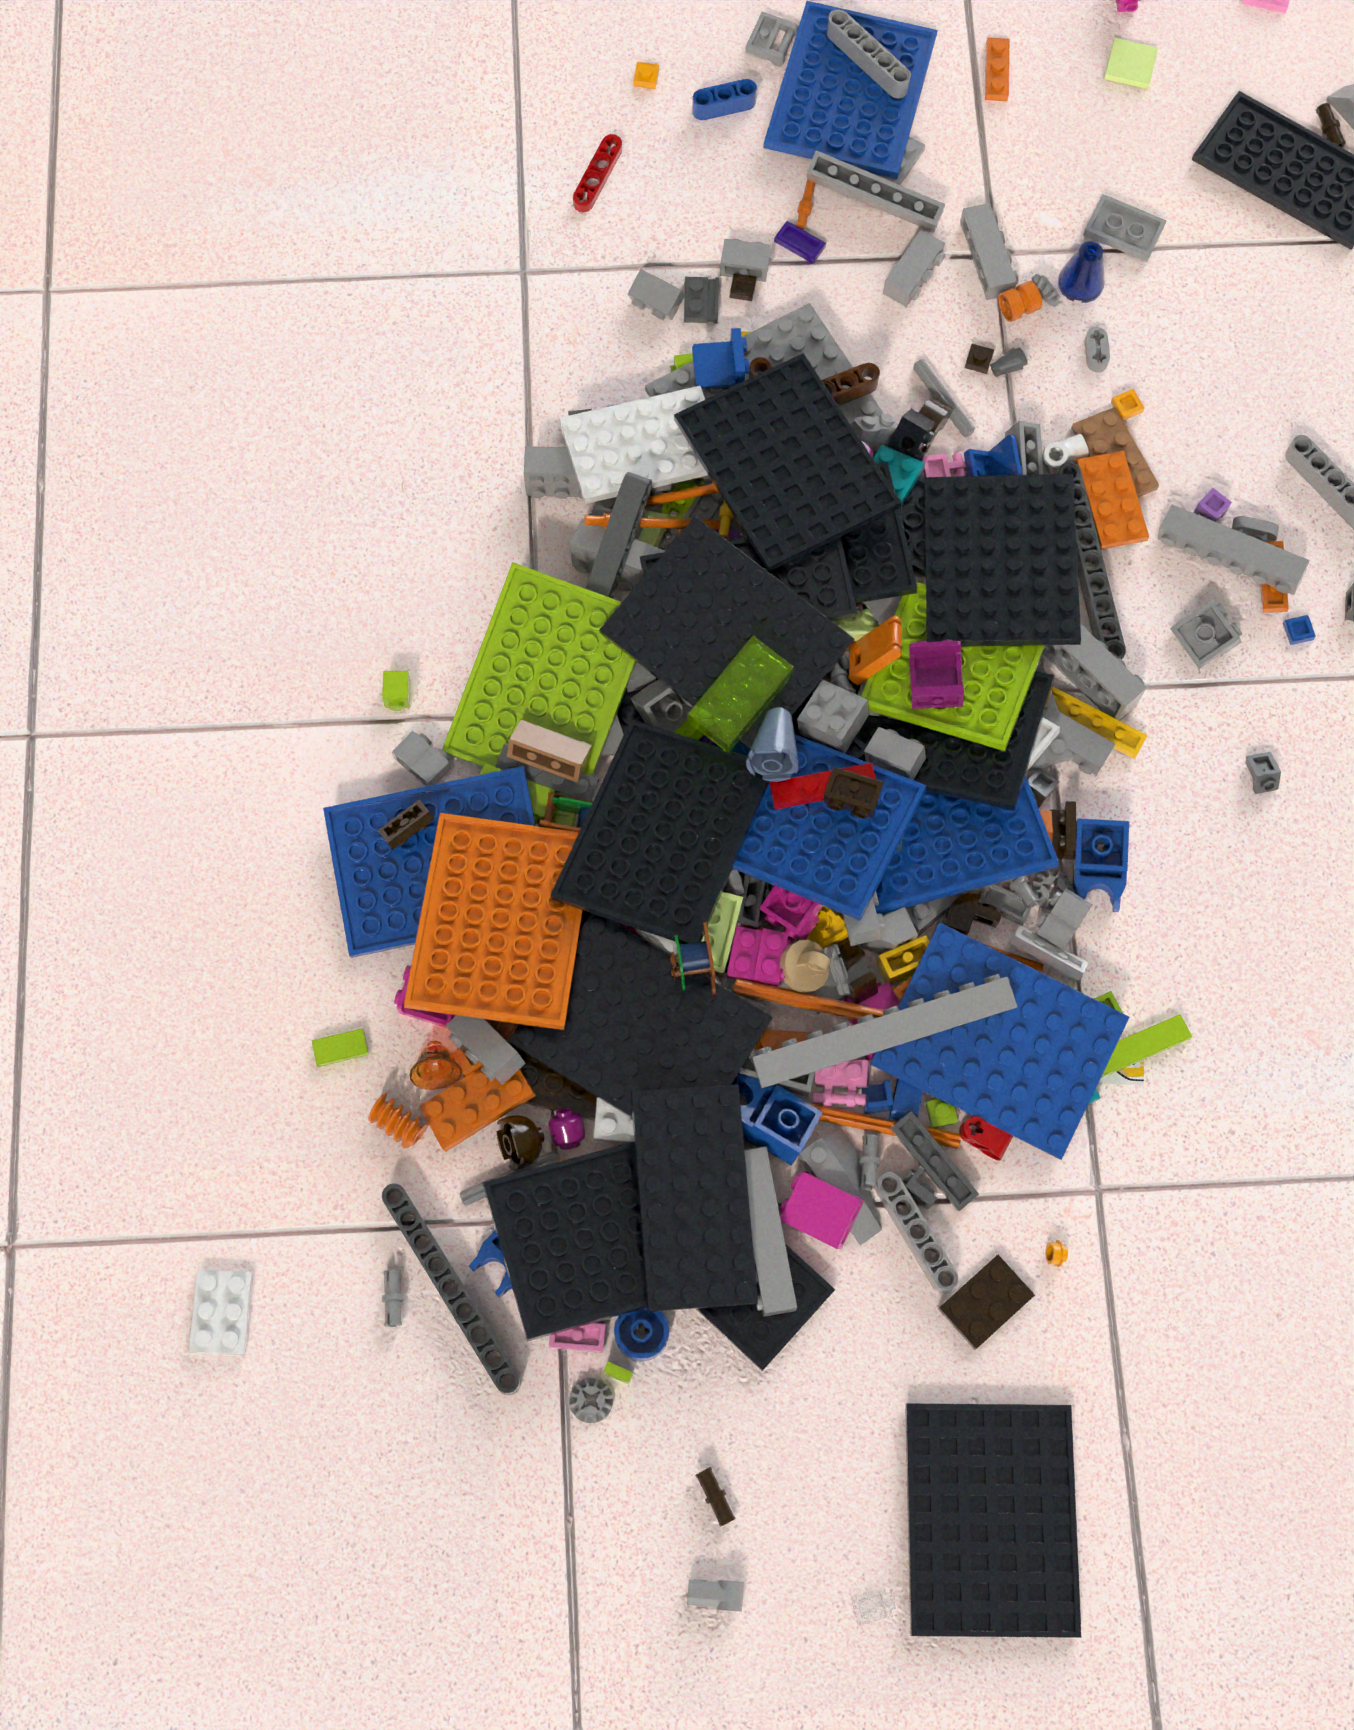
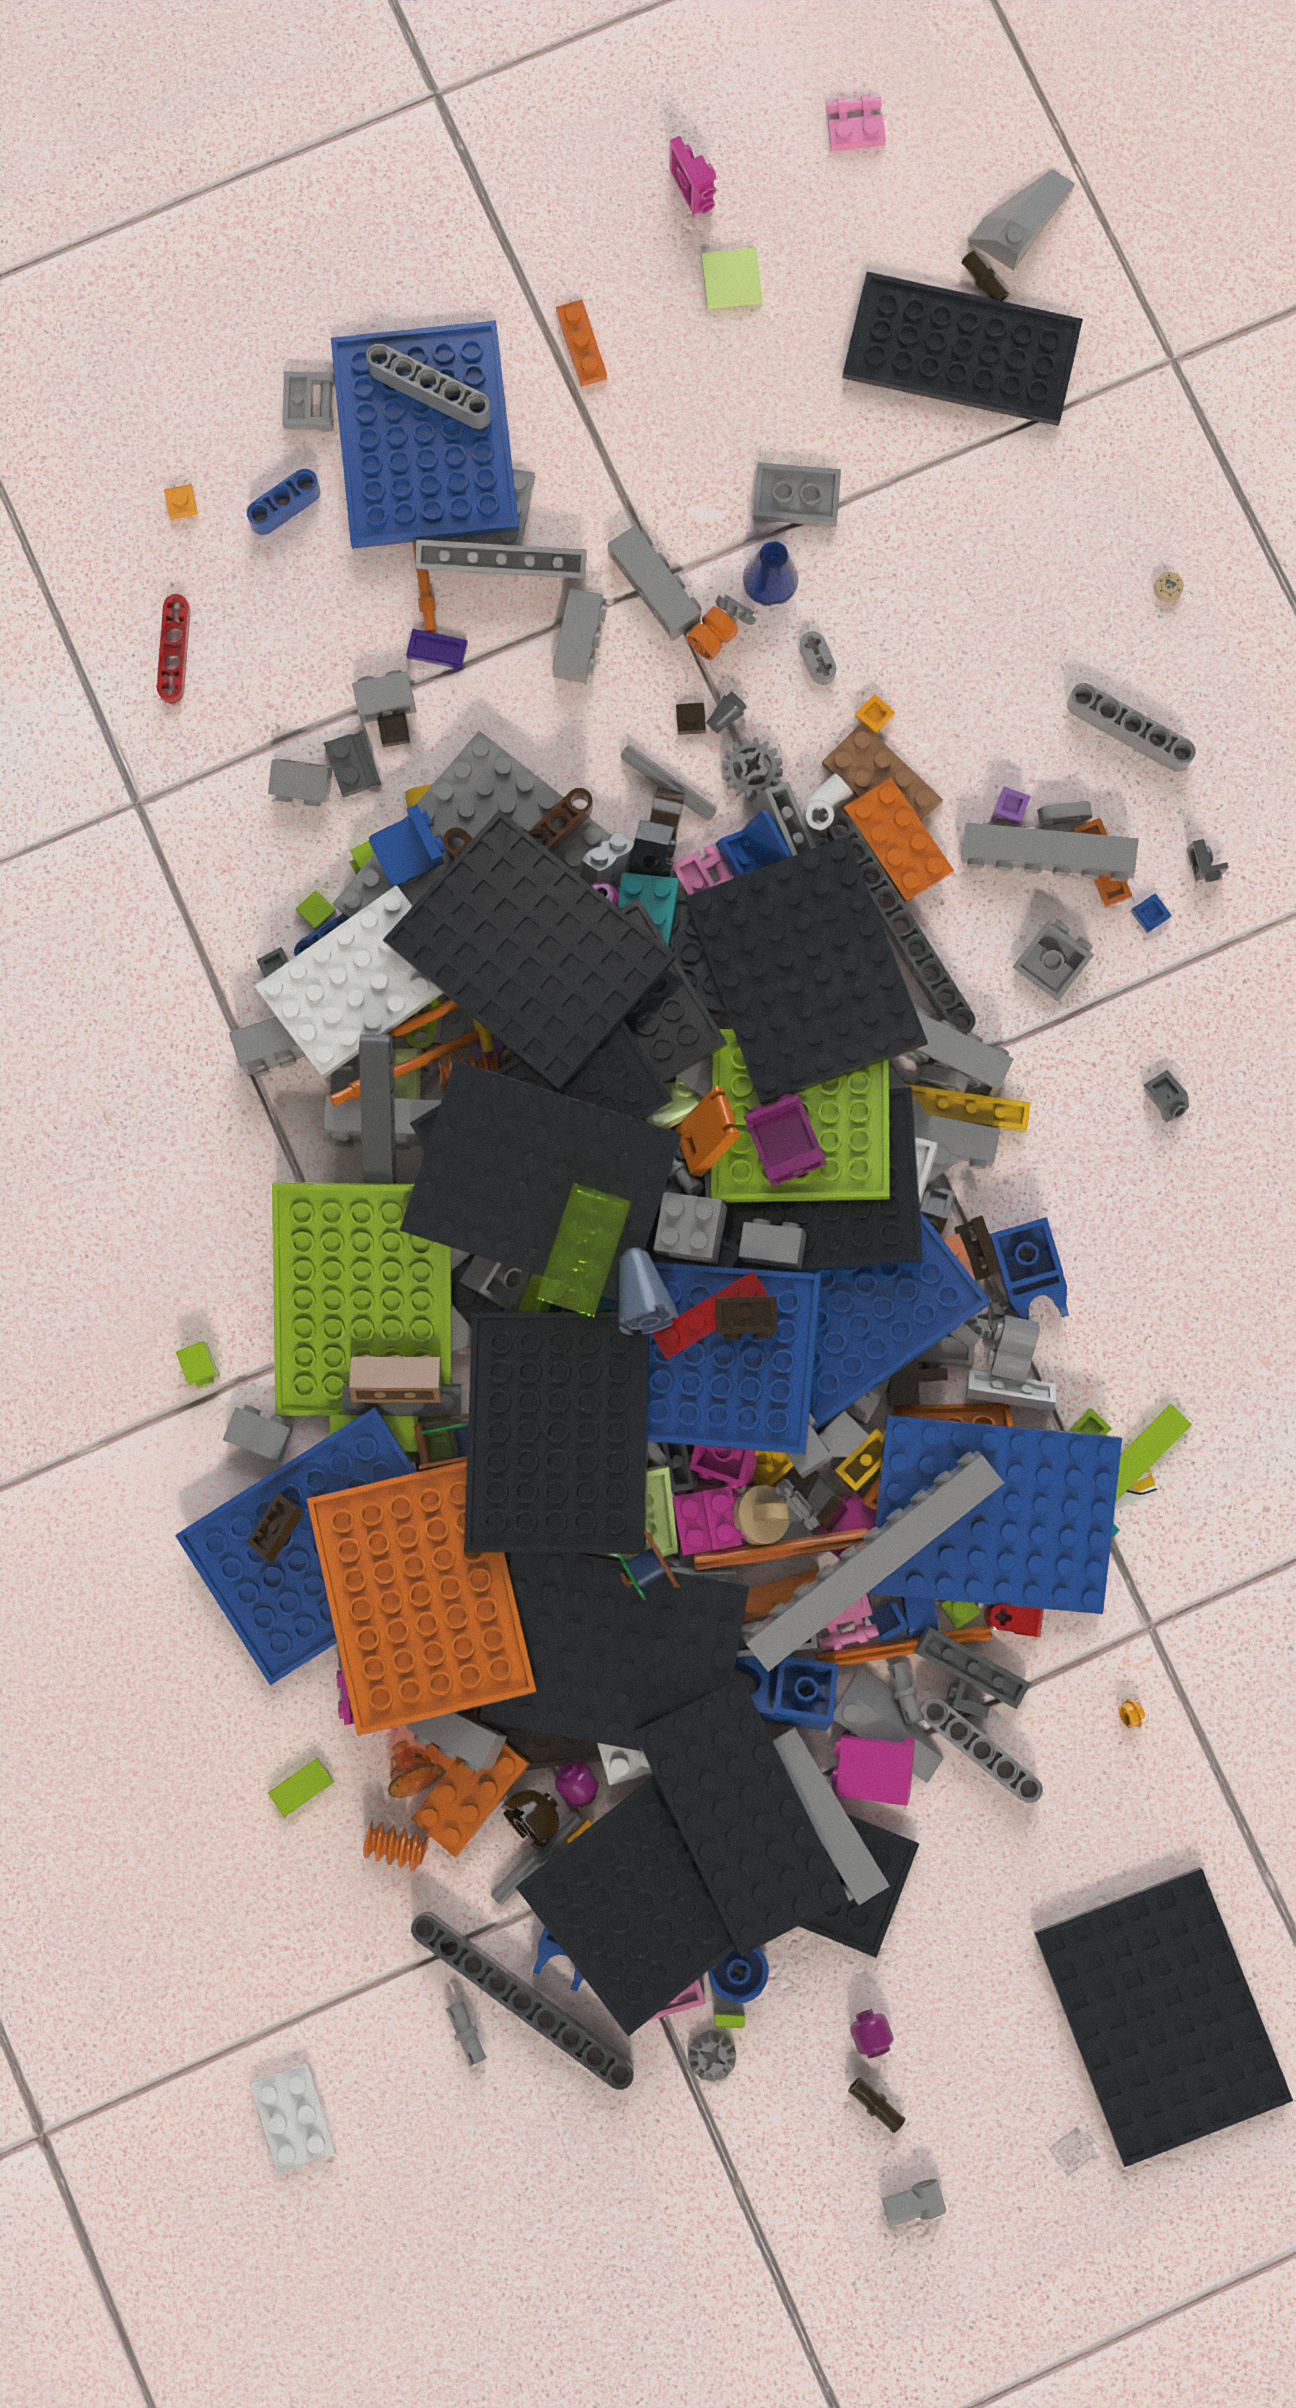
camera: 20 degrees left, 10 degrees up
(628, 391) = (316, 910): none -> lime tile
(734, 1433) = (871, 2034): none -> magenta head
(986, 1302) = (1077, 1792): dark brown plate -> none
(1013, 407) = (743, 762): none -> light grey gear
(1083, 689) = (943, 1078): none -> light grey beam

